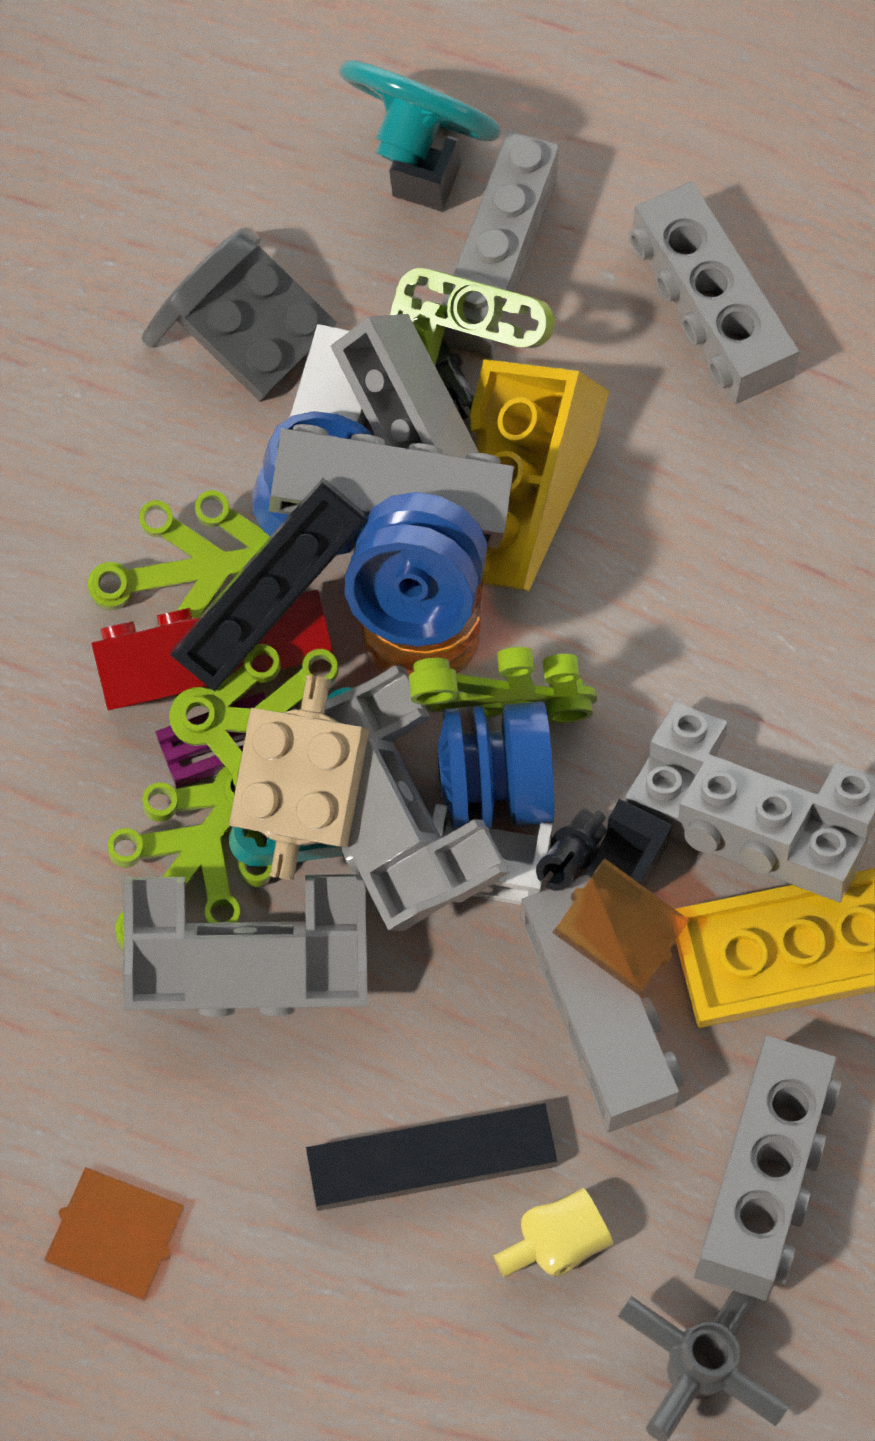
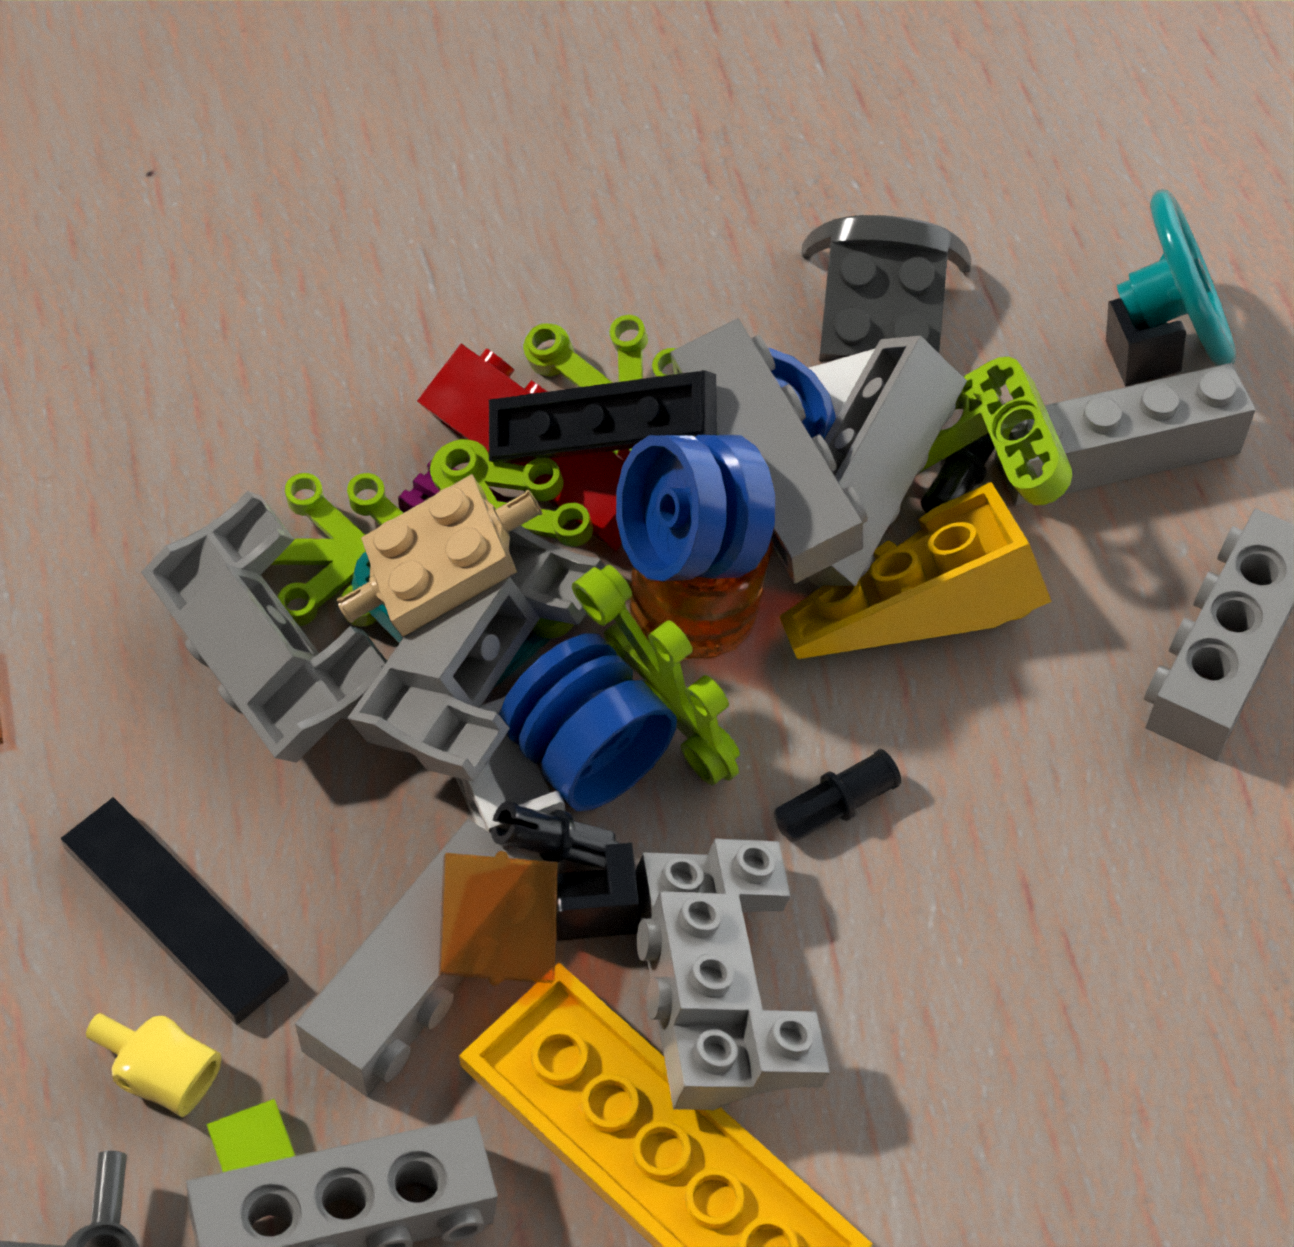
camera: 55 degrees right, 10 degrees down
(658, 639) = (837, 796): none -> black axle
(668, 1208) = (250, 1137): none -> lime tile

